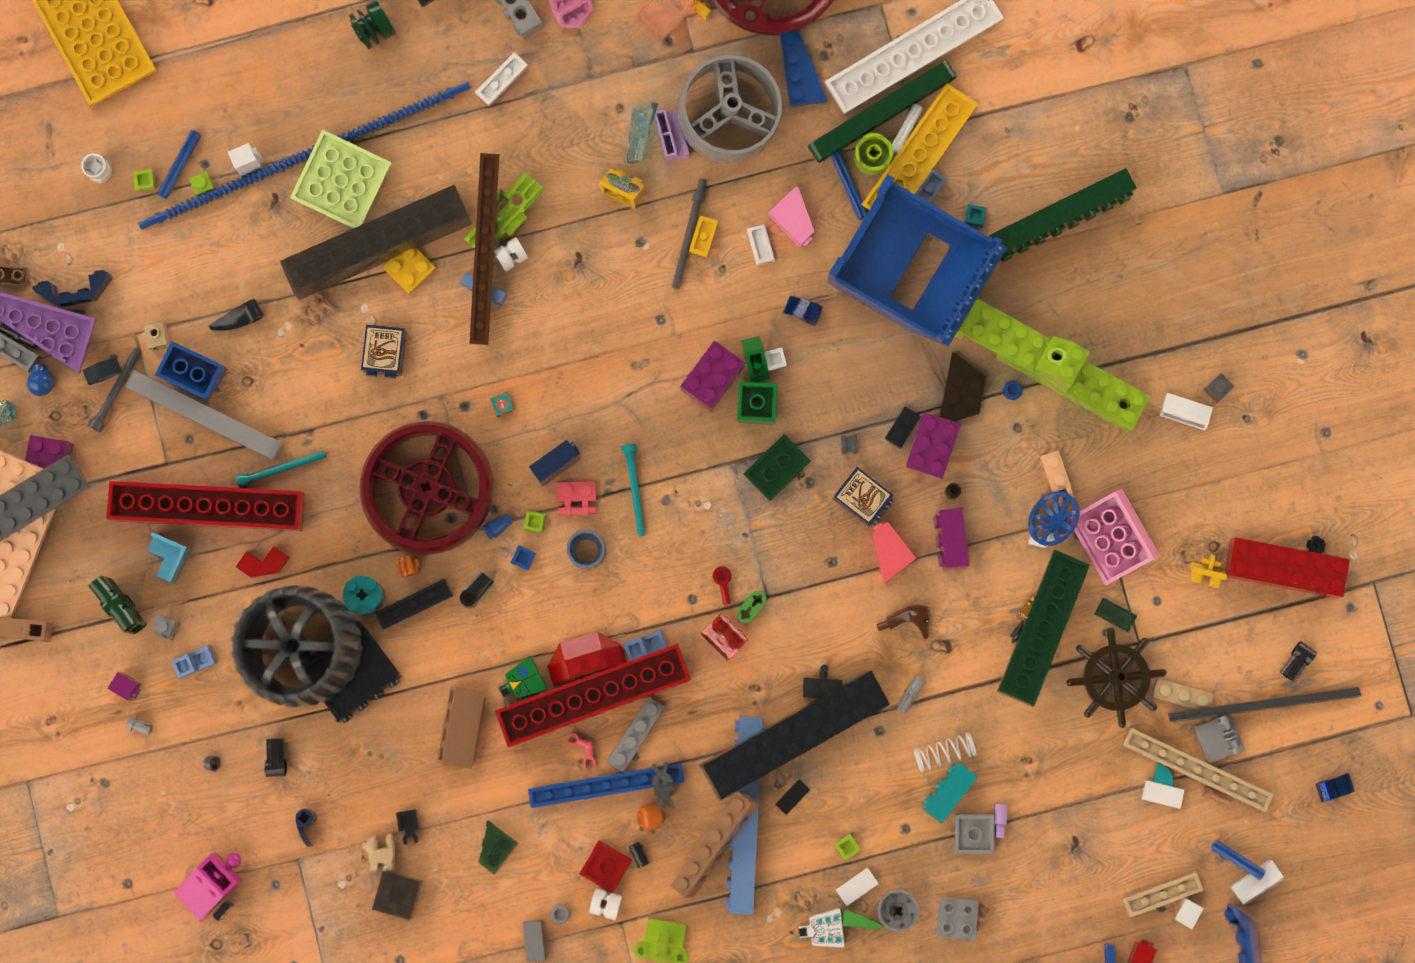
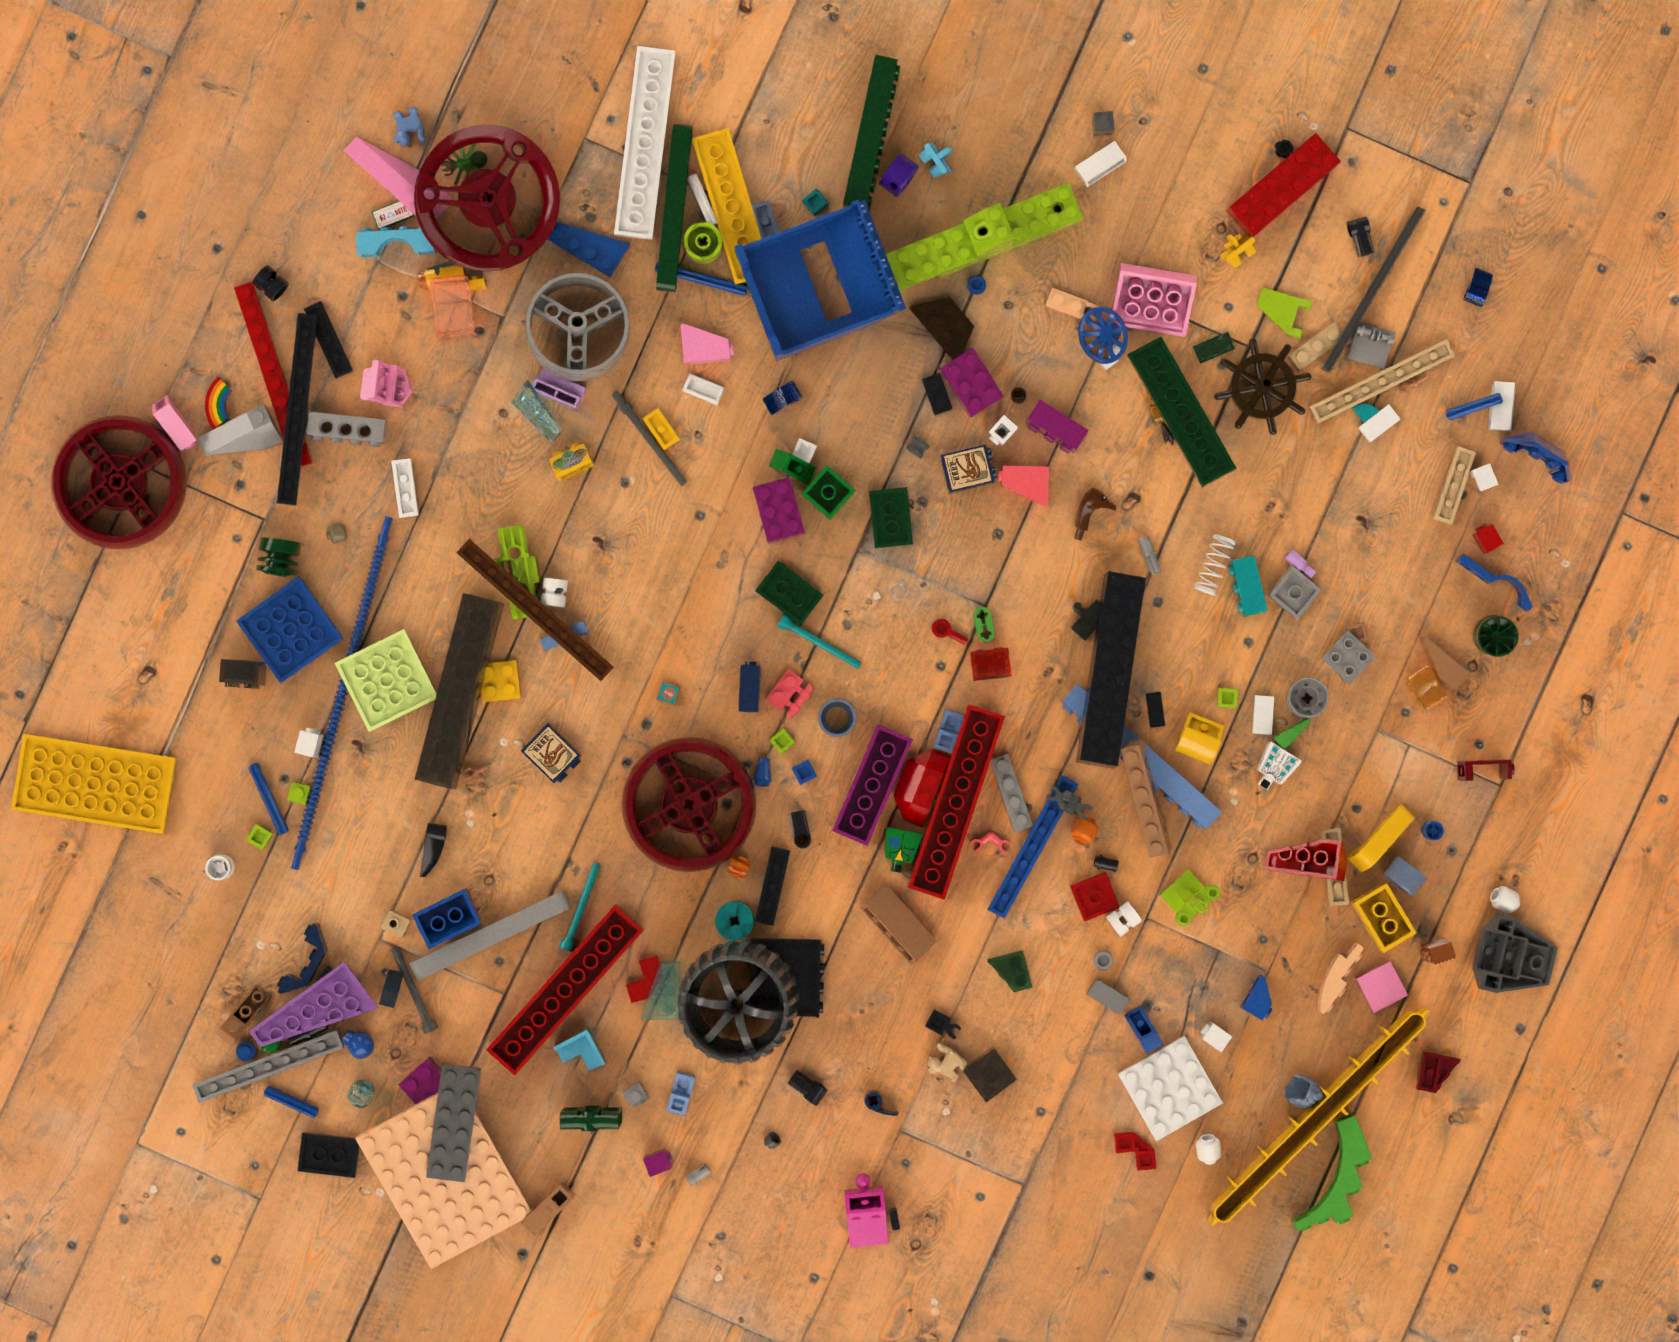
camera: 60 degrees left, 5 degrees up
(256, 585) = (664, 993): none -> clear light blue wing
(260, 67) = (242, 672): none -> clear smoke brick
(323, 78) = (290, 629): none -> blue plate
(426, 56) = (336, 533): none -> dark tan piece
(554, 619) = (872, 785): none -> magenta brick
(654, 435) = (789, 593): none -> dark green plate
(797, 850) = (1200, 738): none -> yellow brick
(921, 497) = (1005, 424): none -> white brick
(1048, 261) = (899, 175): none -> dark purple piece
(1086, 273) = (931, 152): none -> medium azure hips
(1189, 645) = (1282, 309): none -> lime flag

